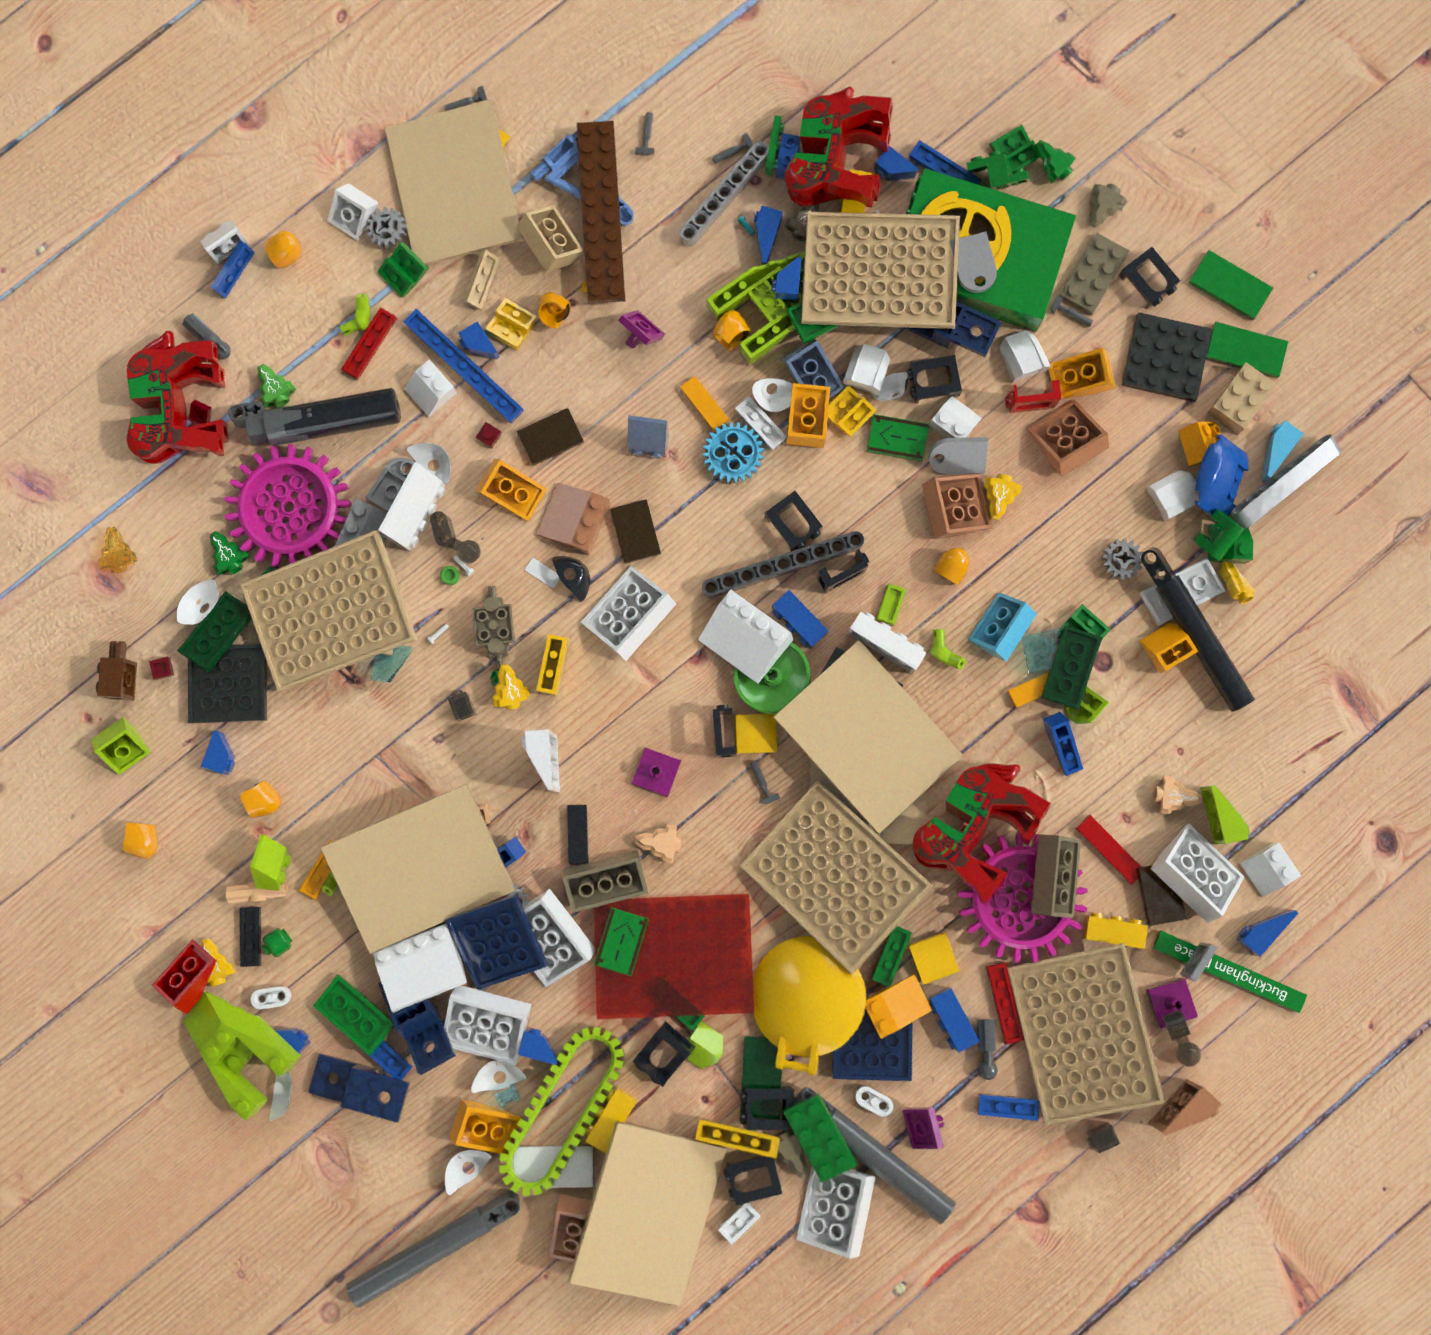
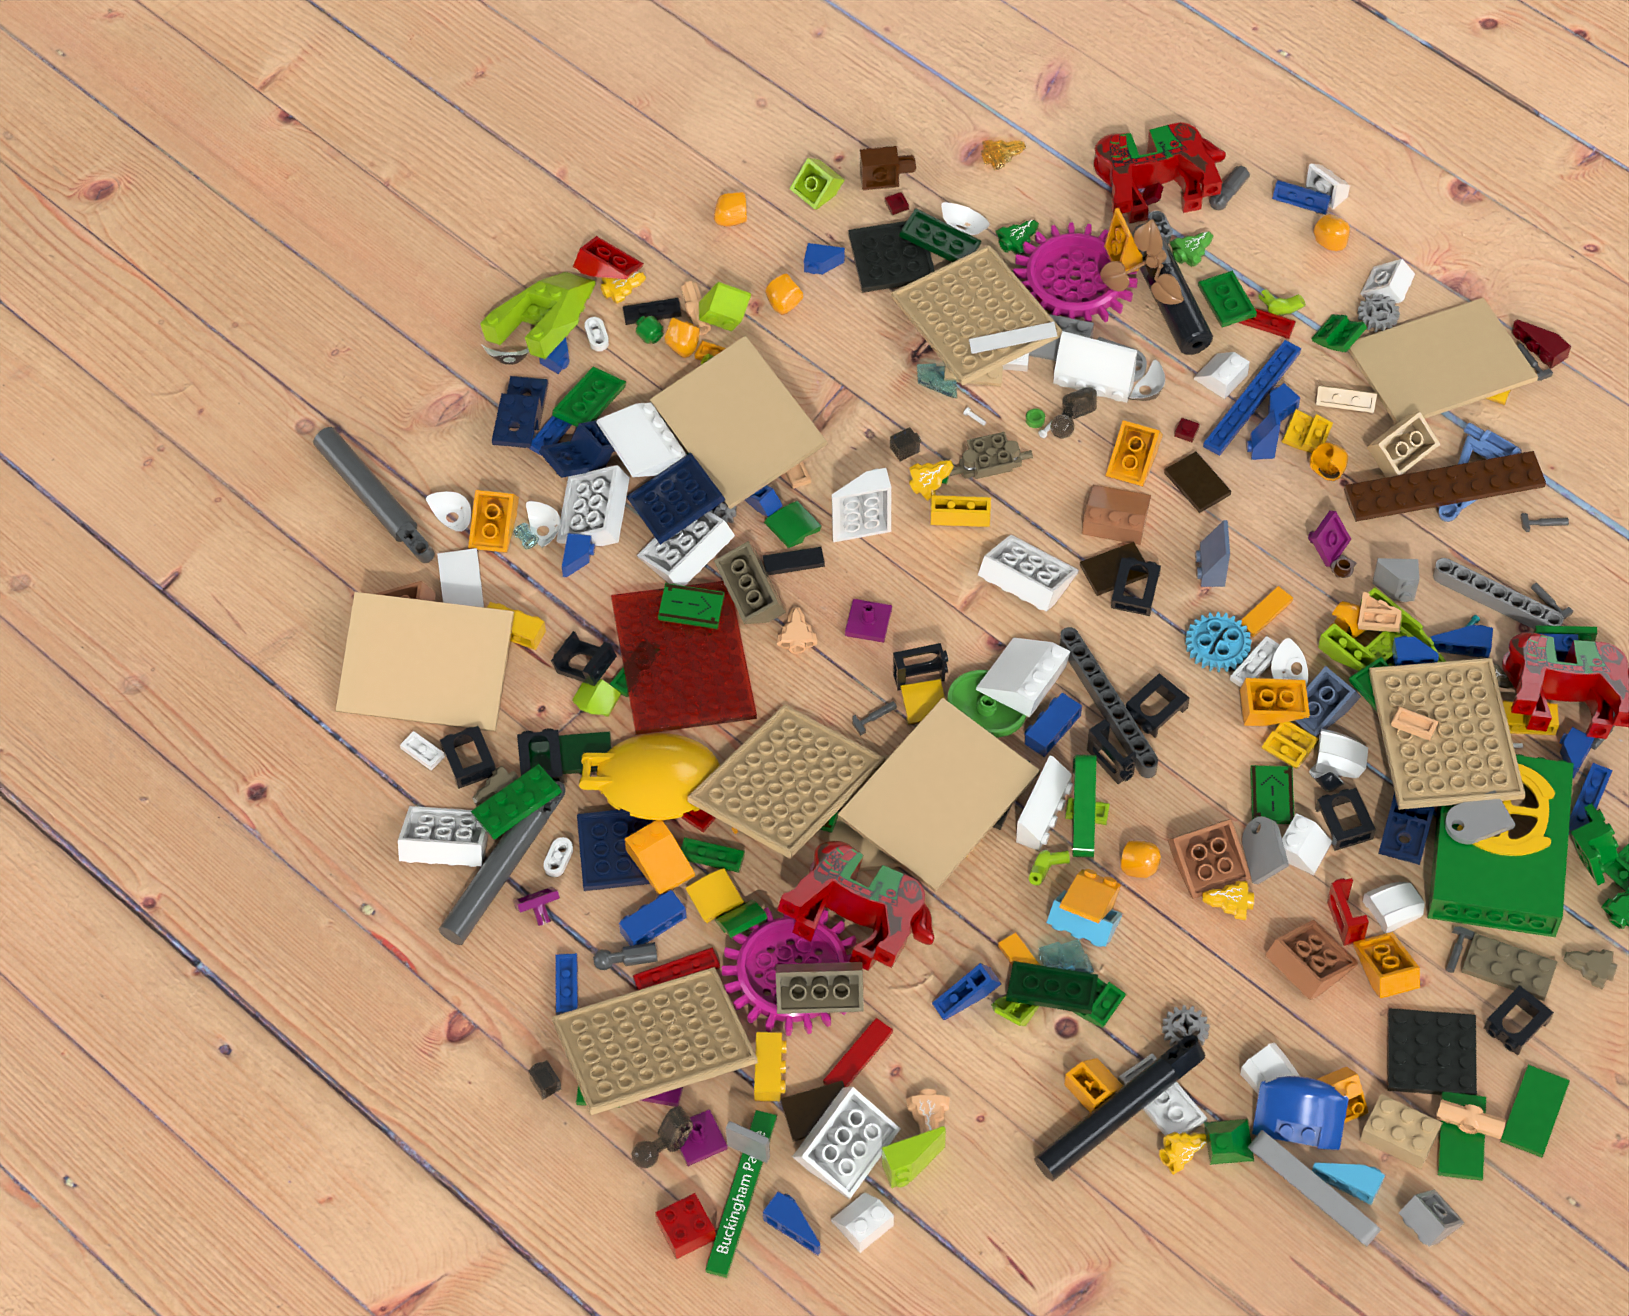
camera: 80 degrees right, 25 degrees down
(275, 453) = (1121, 244): none -> light orange slope
(296, 422) = (1148, 239): none -> medium nougat plant
(297, 910) = (682, 337): none -> light orange piece
(344, 366) = (1227, 299): none -> green tile
(372, 579) = (1013, 337): none -> white sticker
(451, 84) = (1543, 343): none -> dark red slope
(520, 362) = (1265, 437): none -> blue slope
(536, 829) = (792, 524): none -> green slope
(539, 1102) = (523, 561): lime piece -> none
(542, 573) = (1055, 496): white sticker -> none
(580, 584) = (1056, 527): black piece -> none
(644, 521) = (1133, 604): none -> black panel
(668, 323) = (1343, 567): none -> reddish brown animal
(697, 275) = (1397, 578): none -> light grey slope
(737, 1138) = (506, 730): yellow brick -> none
(741, 301) = (1378, 615): none -> light nougat wing
(871, 294) = (1414, 723): none -> light nougat tile
(889, 603) = (1084, 805): none -> green beam
(966, 937) = (741, 918): none -> green slope
(994, 618) = (1091, 895): none -> light orange slope
(1185, 1108) = (589, 1144): nougat slope -> none
(1224, 540) = (1222, 1116): green connector -> none
(1241, 338) = (1471, 1119): none -> light nougat piece
(1260, 1026) = (685, 1226): none -> red brick
(1321, 391) = (1430, 1217): none -> light grey slope

